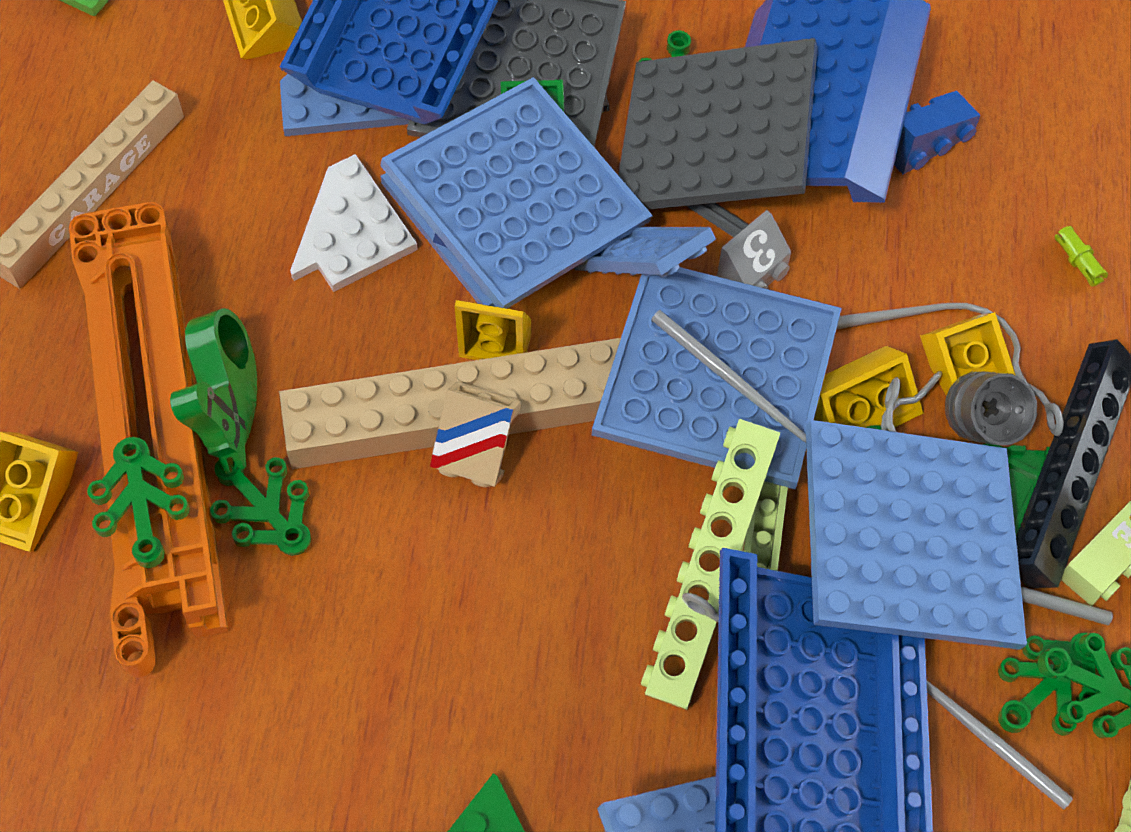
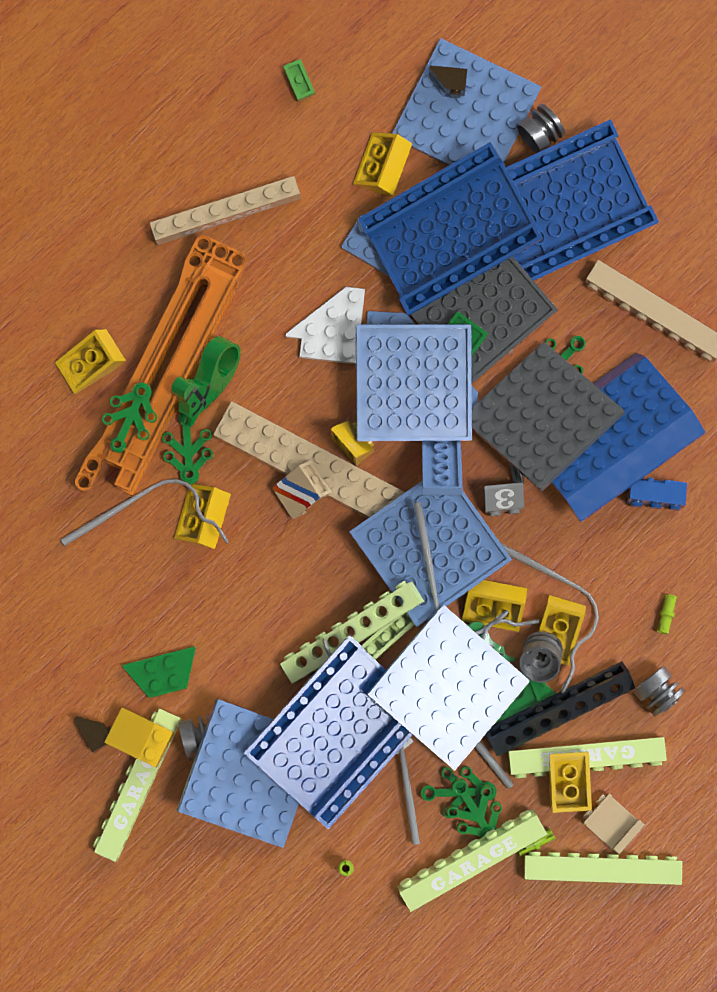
camera: 40 degrees right, 20 degrees up
(207, 685) = (105, 516): none -> light grey piece
(356, 578) = (213, 506): none -> yellow slope

